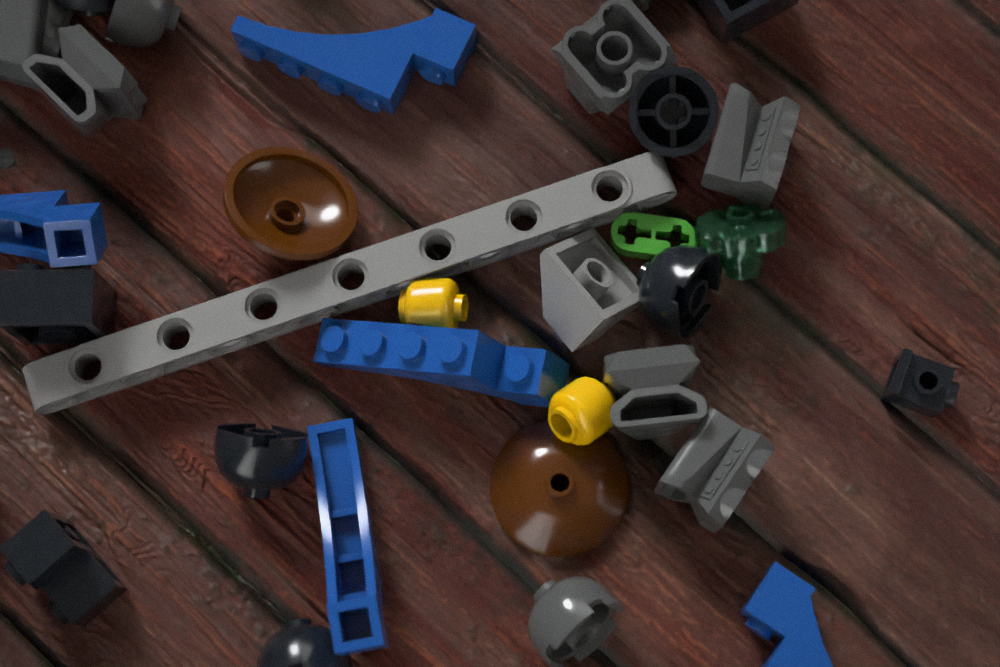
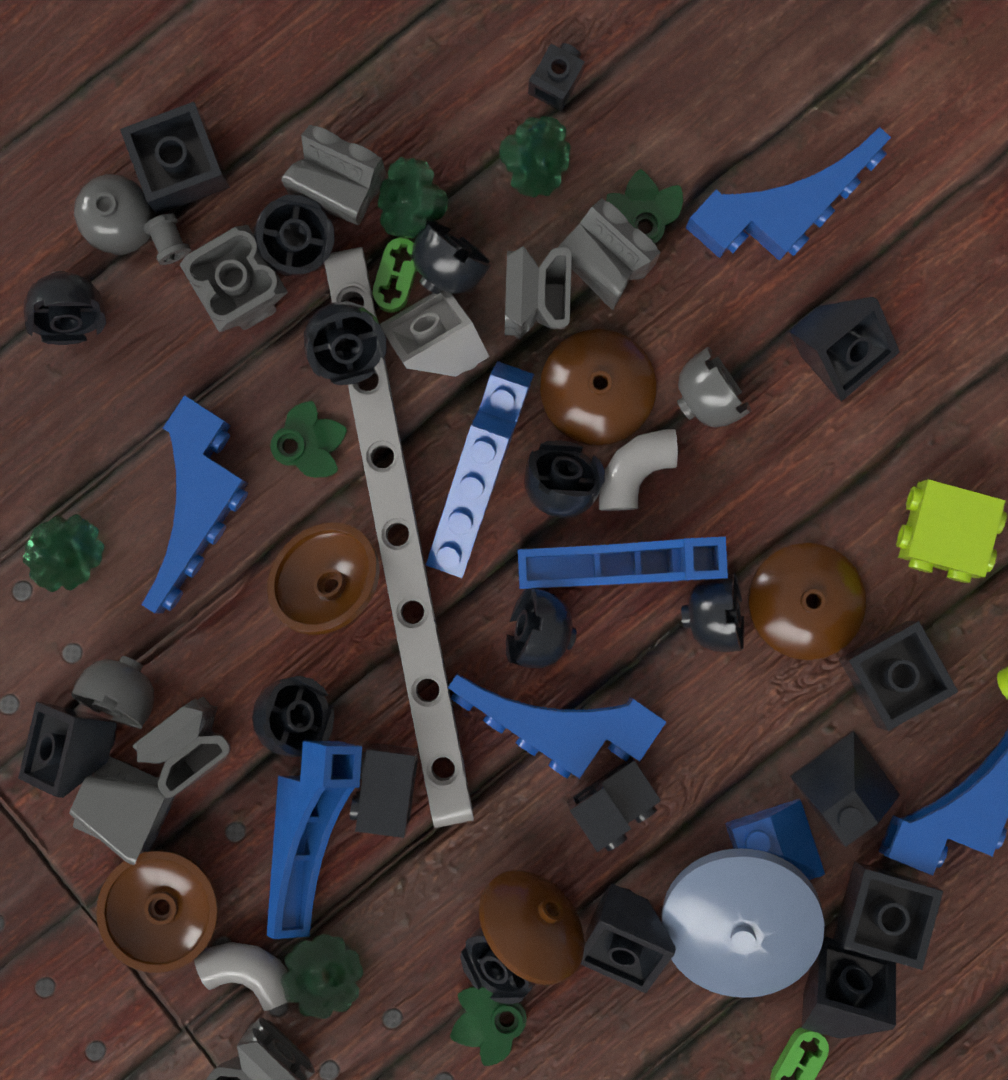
camera: 90 degrees left, 10 degrees up
(133, 192) = (292, 713): none -> black cylinder
(143, 499) = (564, 735): none -> blue arch
(433, 303) = (431, 469): yellow head -> none
(440, 455) = (563, 479): none -> black cylinder
(447, 176) = (314, 438): none -> dark green plate
(471, 539) = (631, 466): none -> light grey cylinder
(554, 177) = (344, 343): none -> black cylinder
(581, 411) = (543, 355): yellow head -> none
(787, 511) = (646, 204): none -> dark green plate
(816, 372) = (536, 156): none -> clear green plant

